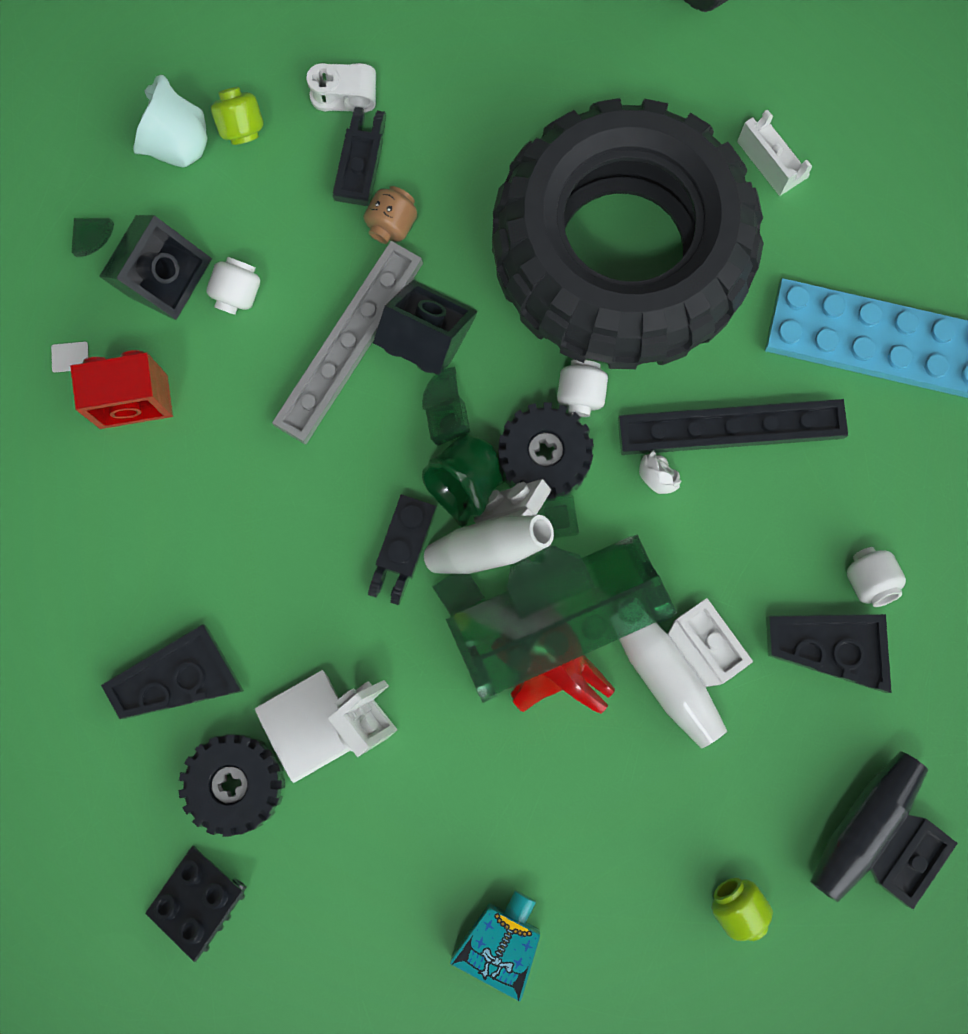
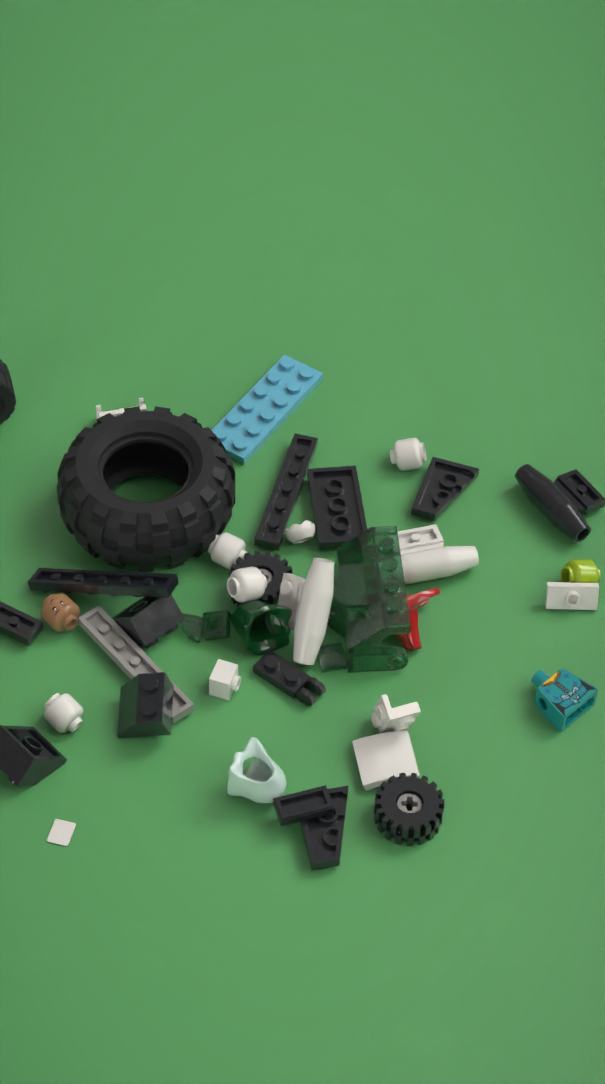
camera: 75 degrees left, 30 degrees down
(121, 390) = (111, 787): red brick -> none
(182, 643) = (303, 805): none -> black tile
(195, 903) = (479, 852): black hinge -> none
(205, 565) = (263, 778): none -> light aqua piece
(268, 386) = (146, 706): none -> black slope
(360, 465) = (224, 679): none -> white plate
(445, 250) = (103, 582): none -> black plate
(505, 436) = (246, 584): none -> white head
(697, 908) = (572, 596): none -> white plate
(731, 508) = (336, 505): none -> black plate

